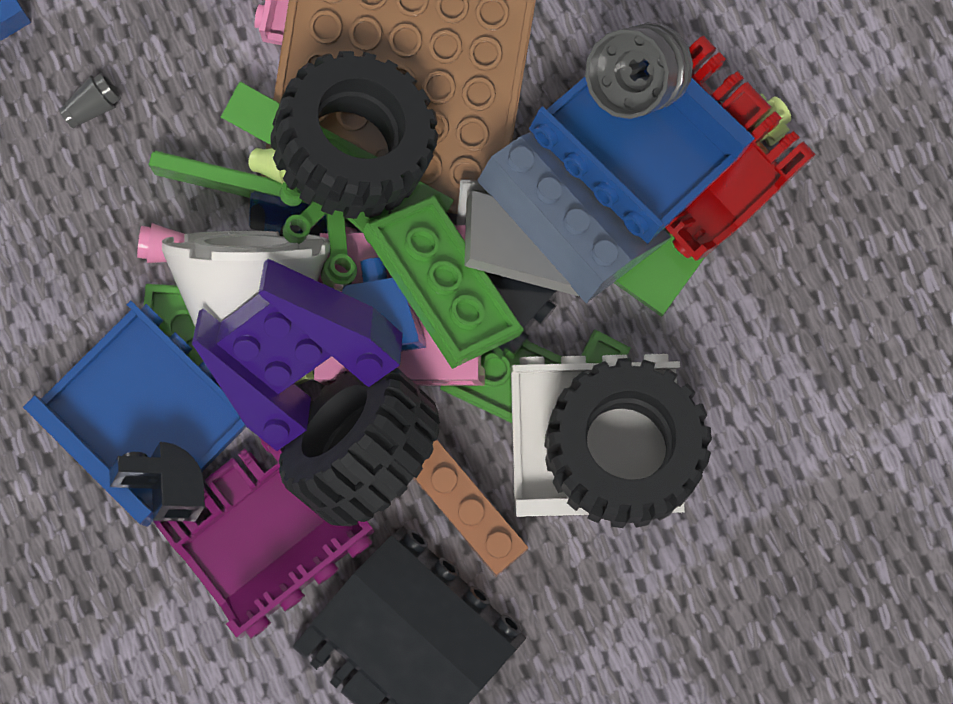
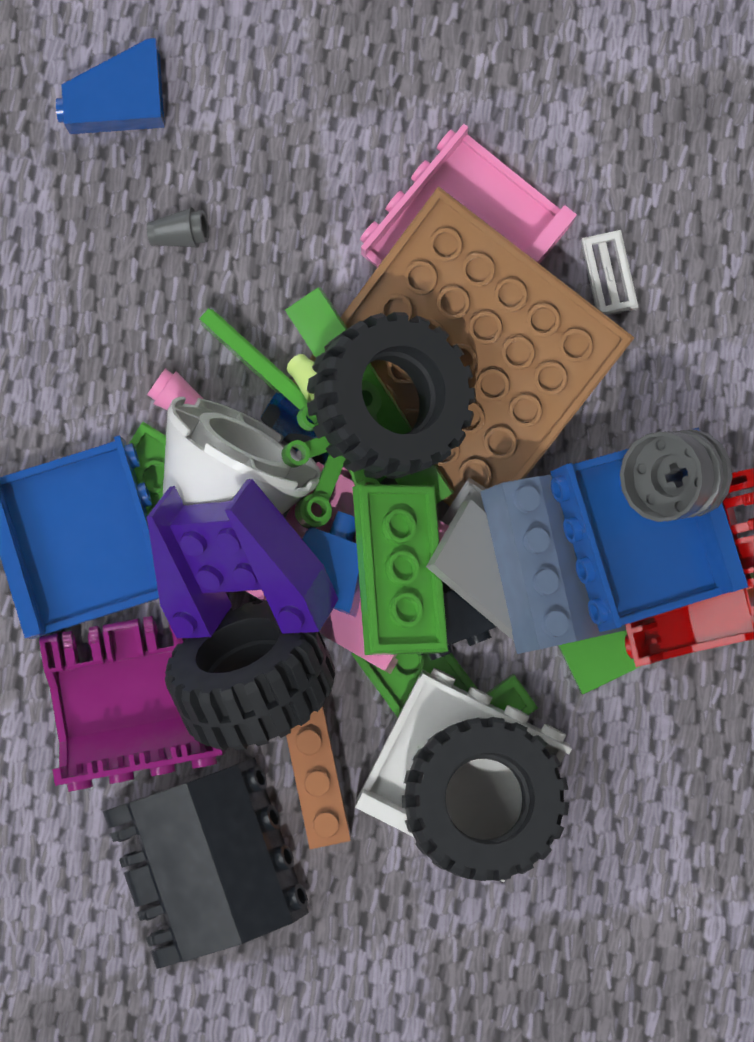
camera: 25 degrees right, 5 degrees up
(170, 474) = (74, 614): black brick -> none

